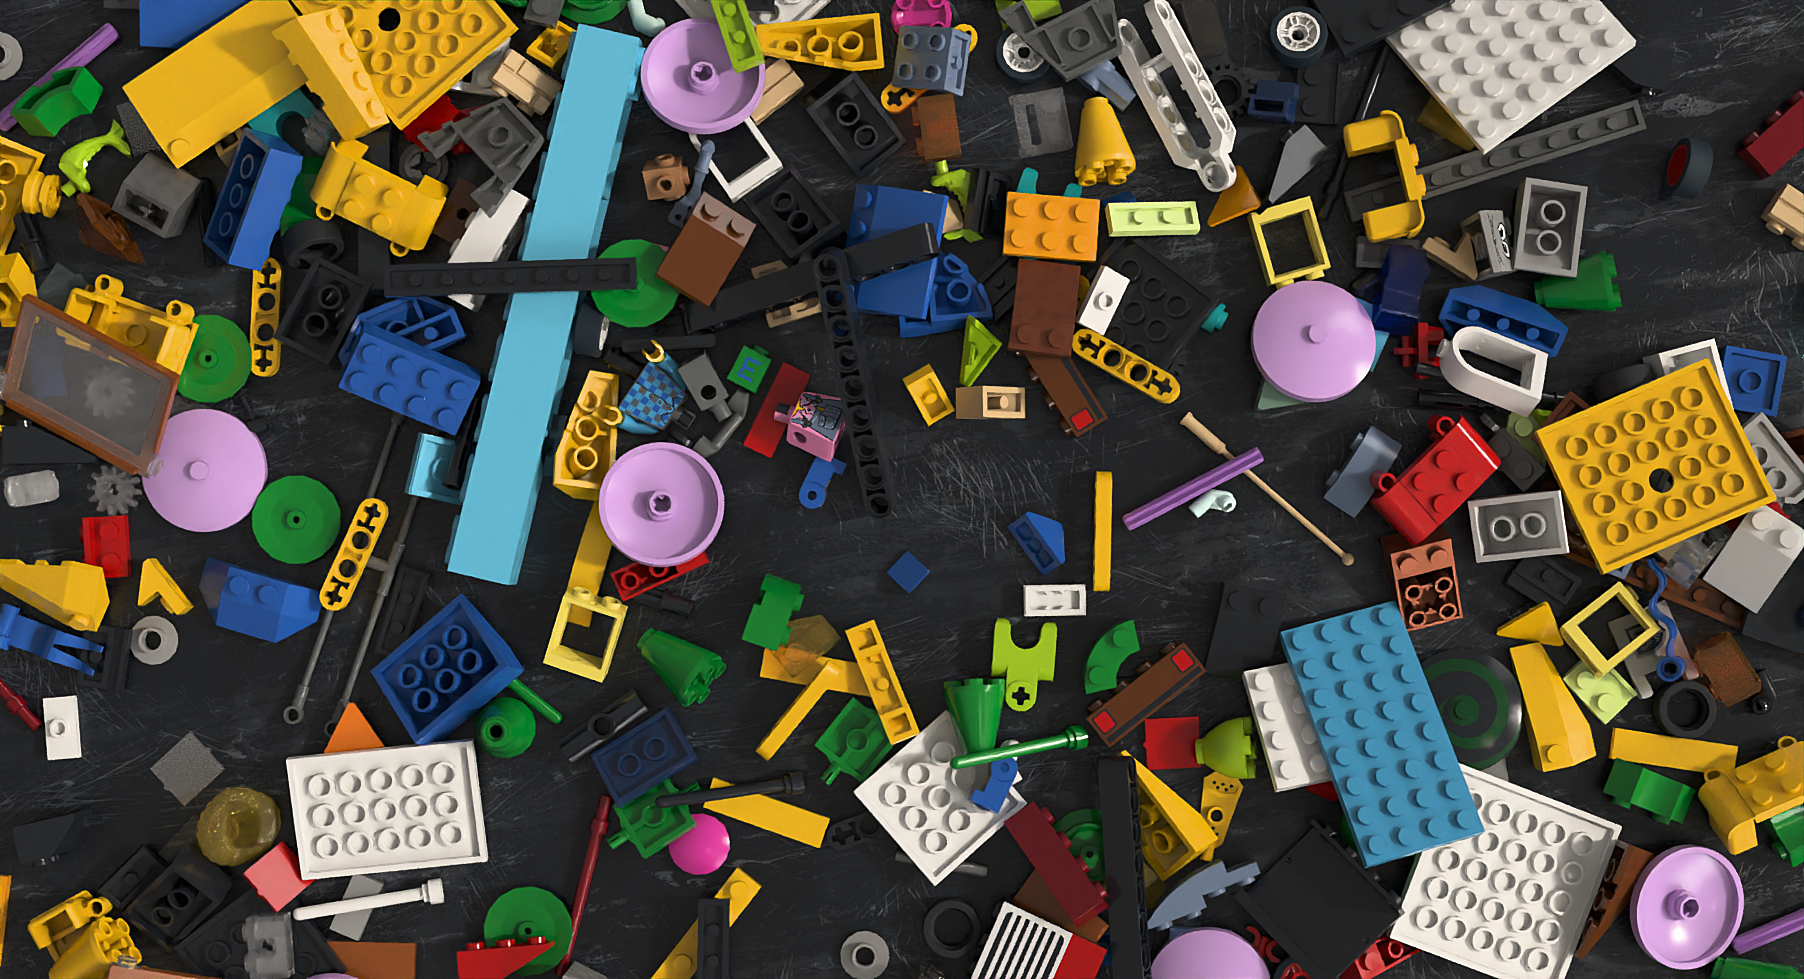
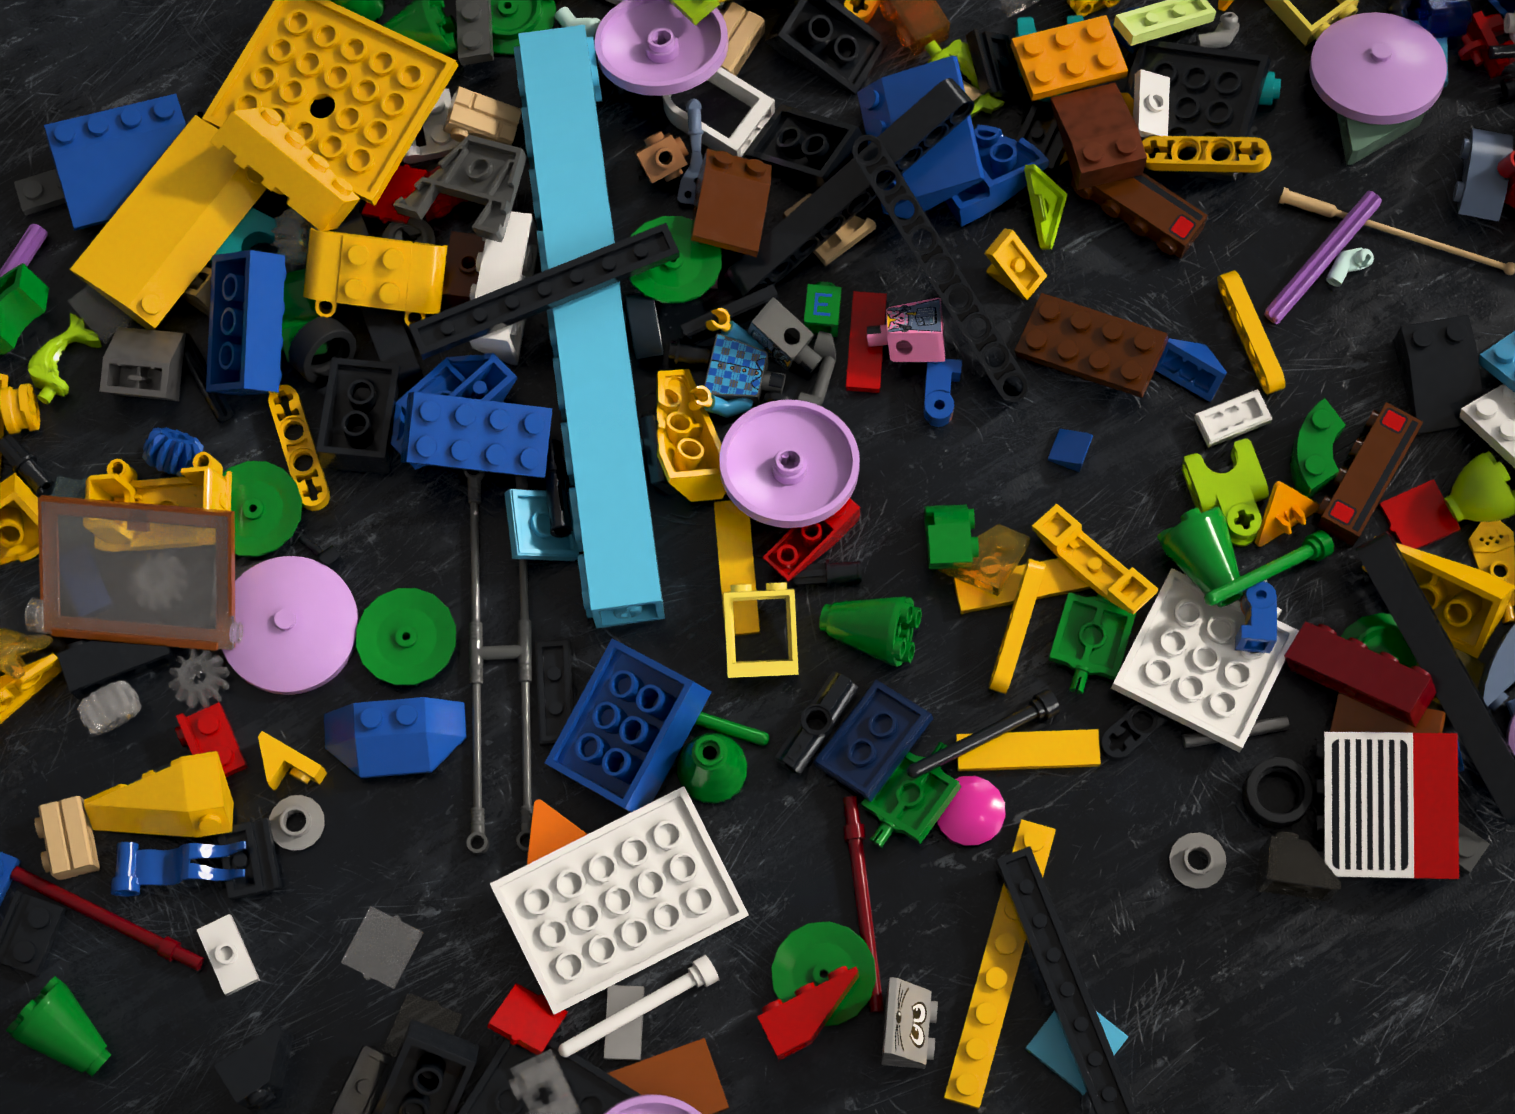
camera: 20 degrees left, 15 degrees down
(105, 230) = (95, 413): reddish brown wedge -> none
(156, 283) = (170, 450): none -> blue gear
(238, 826) = (462, 981): clear yellow piece -> none
(350, 552) = (481, 646): yellow beam -> none
(551, 47) = (497, 80): yellow slope -> none
(962, 491) = (1091, 345): none -> reddish brown plate
(990, 402) = (1079, 250): tan slope -> none
(1058, 698) = (1283, 511): none -> light orange piece
(1199, 250) = (1223, 33): none -> light grey arm

